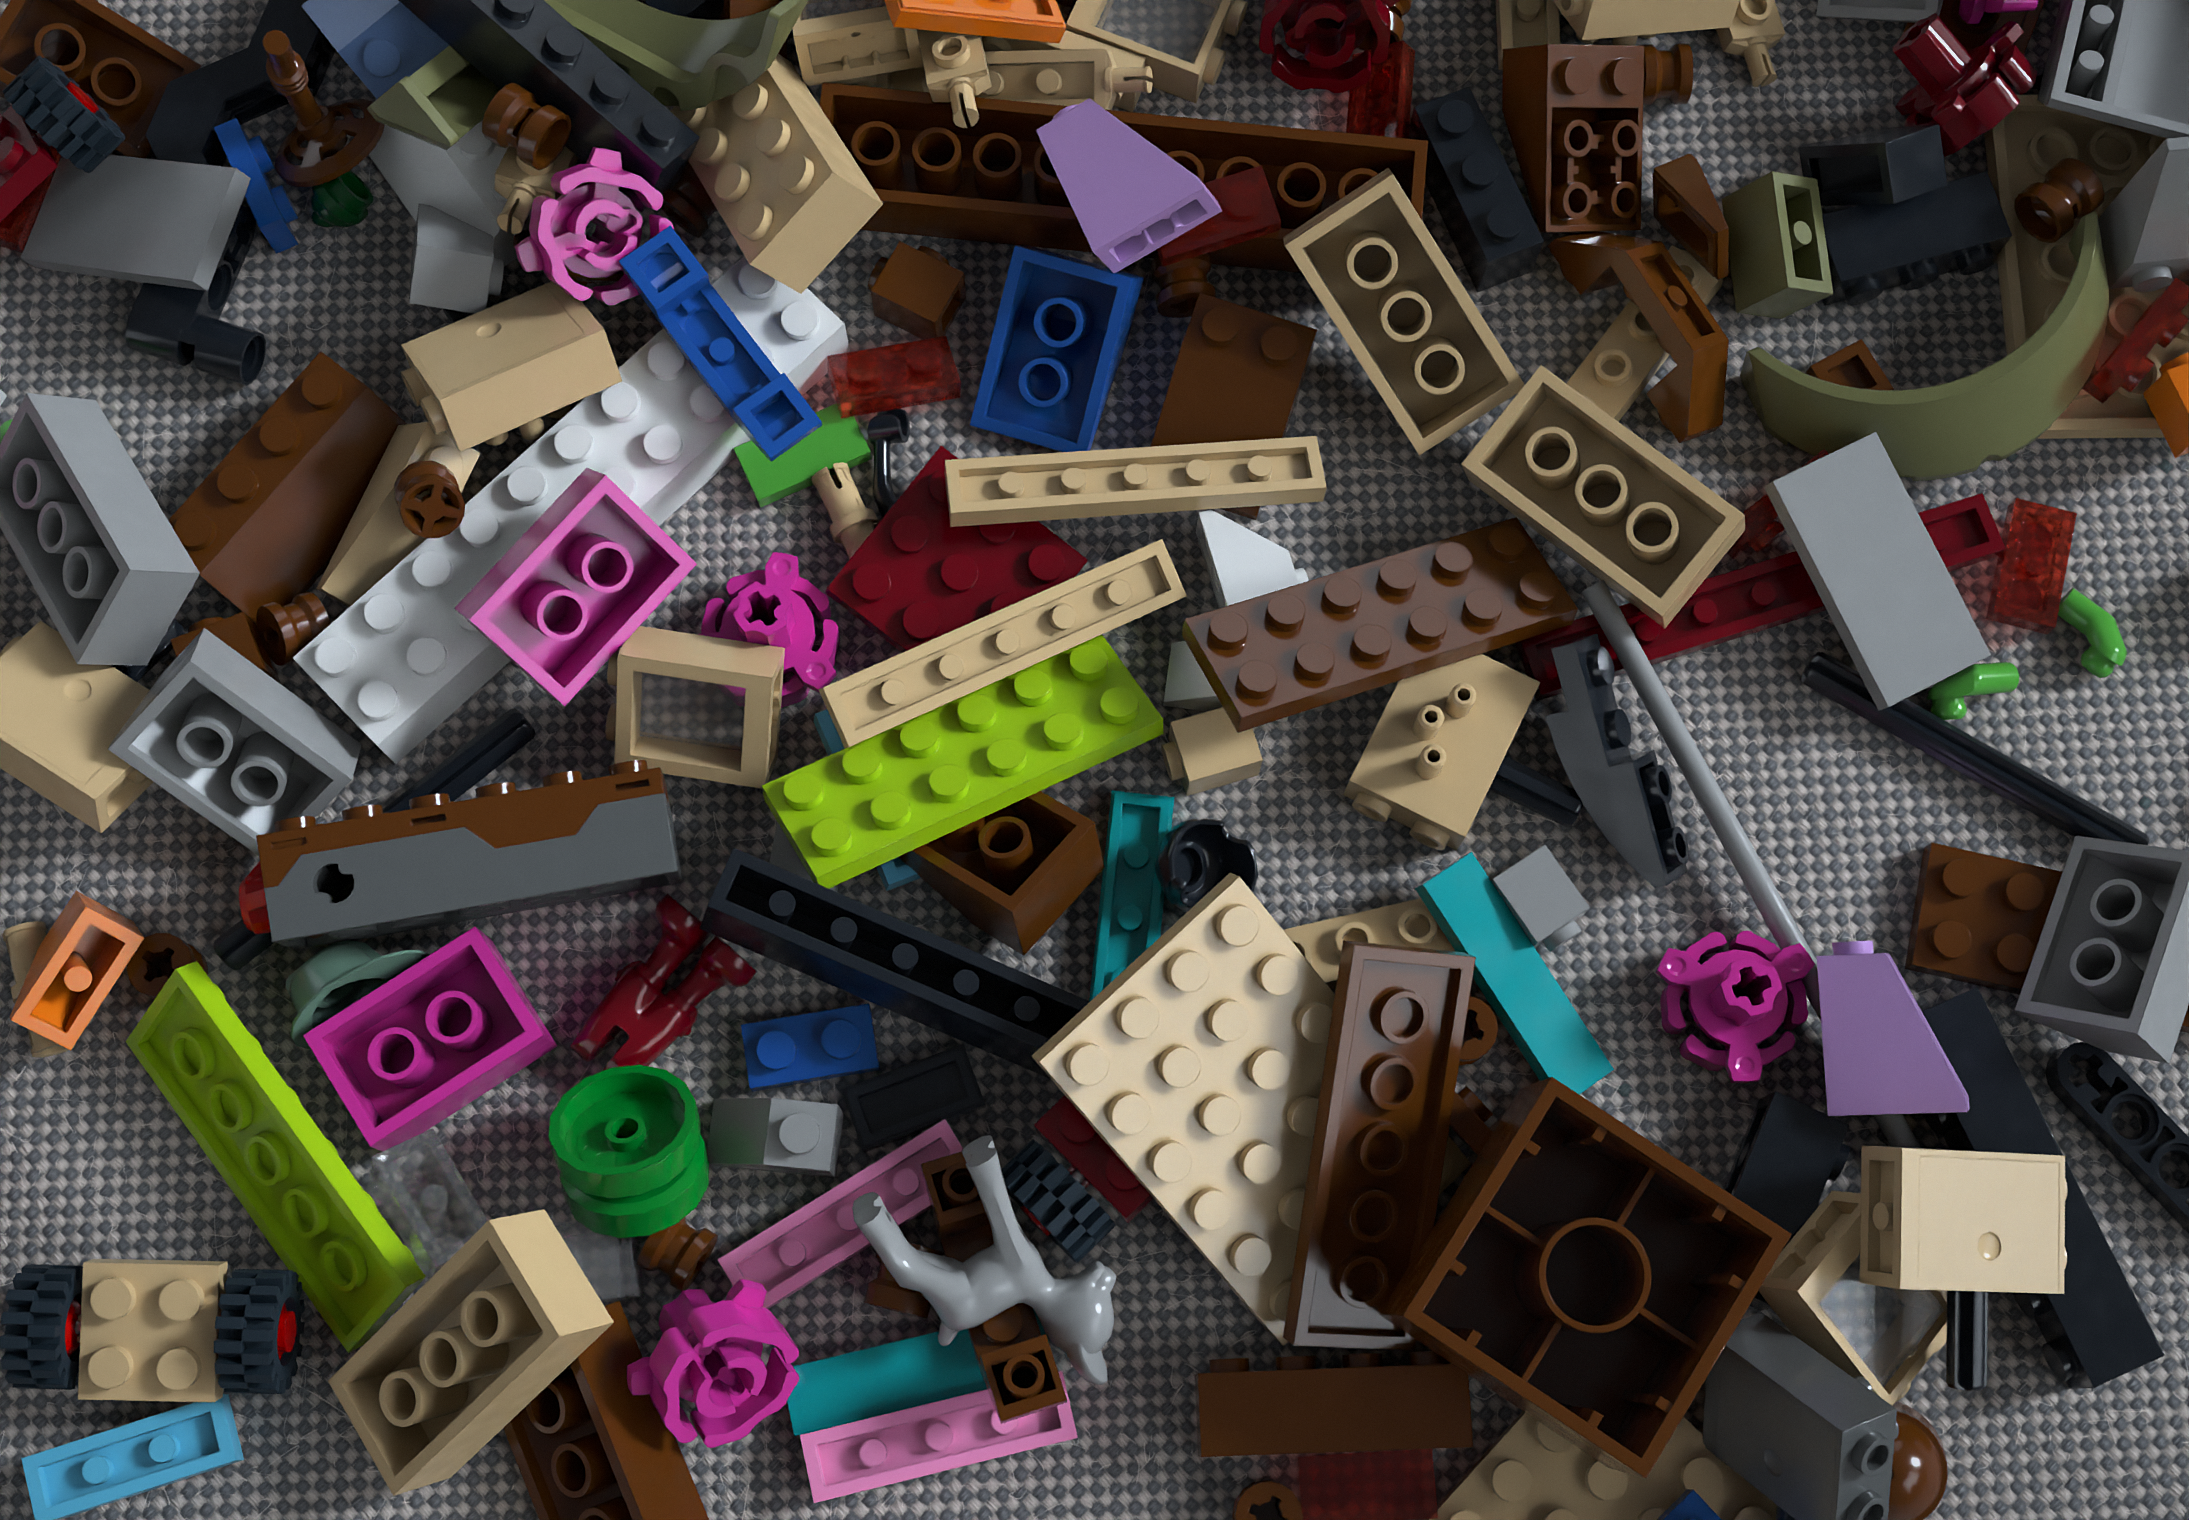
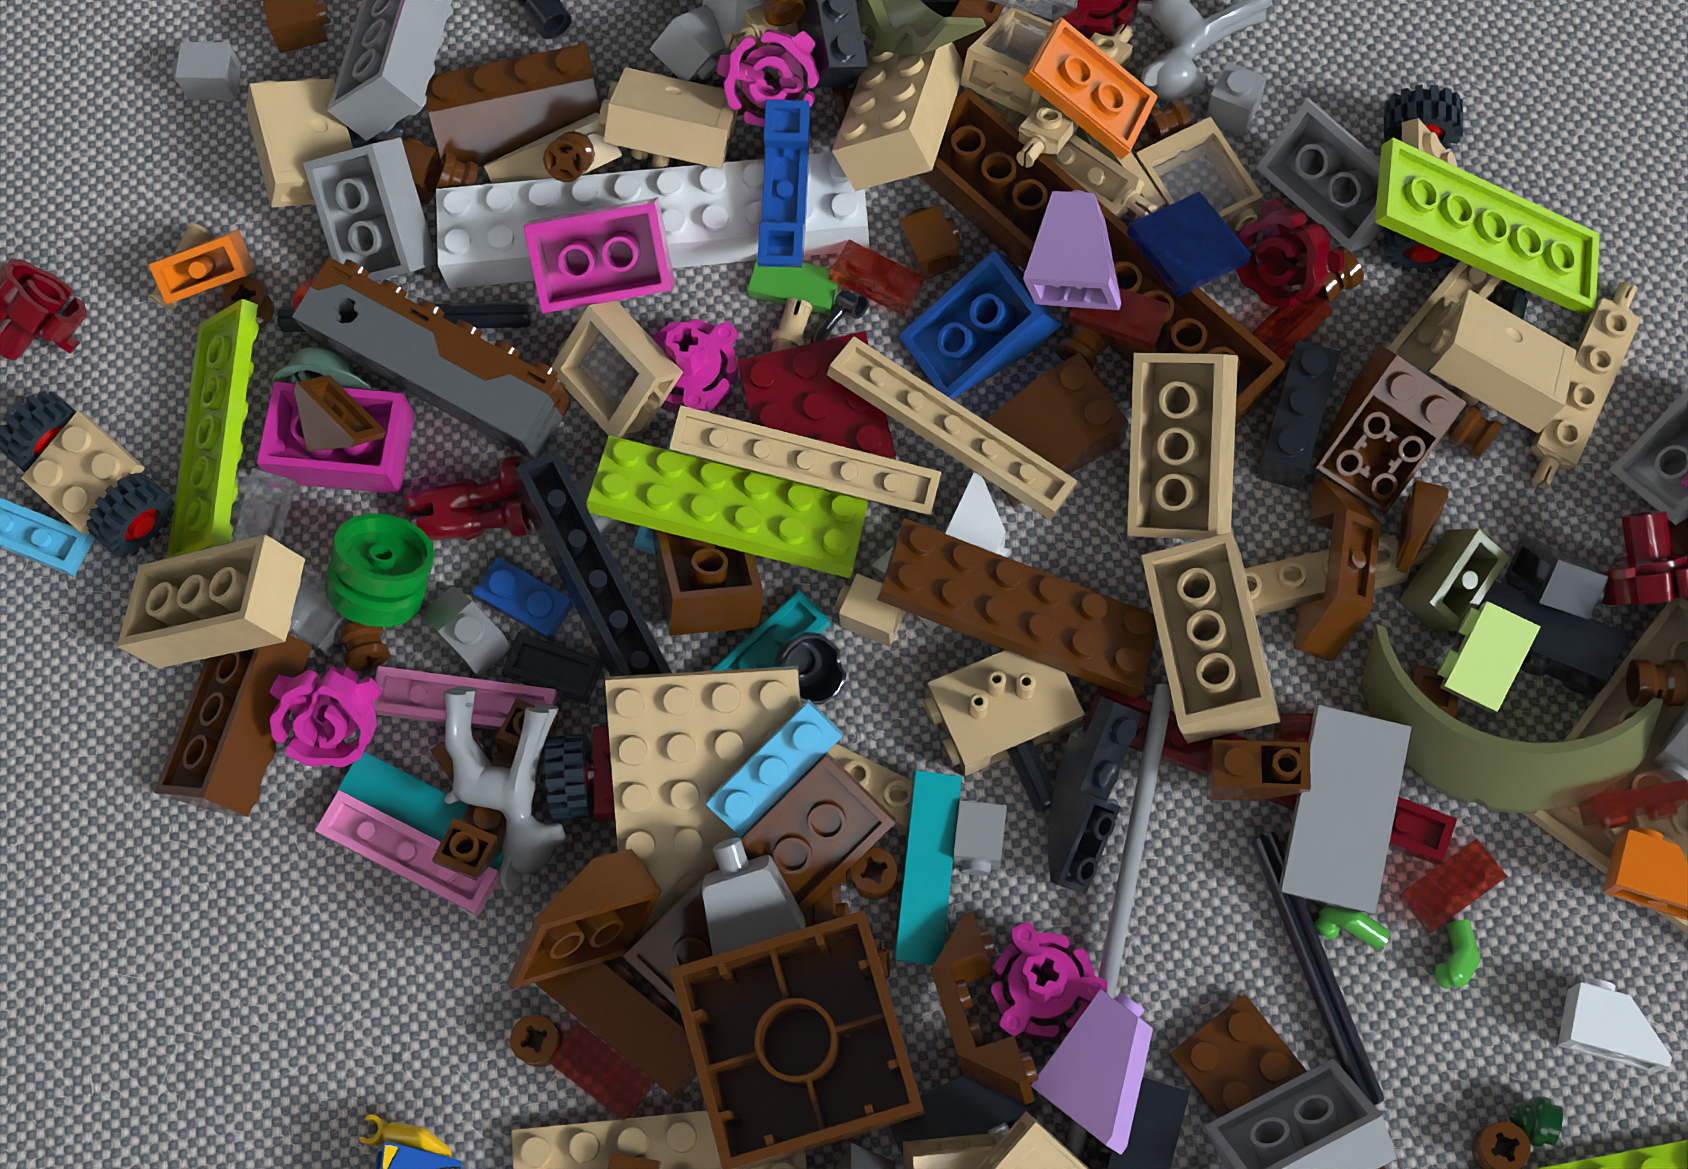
camera: 50 degrees right, 5 degrees down
(421, 1020) = (332, 416): none -> reddish brown slope
(1217, 84) = (1188, 243): none -> clear blue tile
(1234, 1332) = (588, 919): none -> reddish brown slope
(1300, 1005) = (774, 768): none -> medium azure plate
(1396, 1177) = (746, 900): none -> light grey torso
(1765, 599) = (1257, 769): none -> reddish brown slope
(1789, 1123) = (994, 1064): none -> reddish brown slope
(1887, 299) = (1487, 656): none -> yellowish green brick

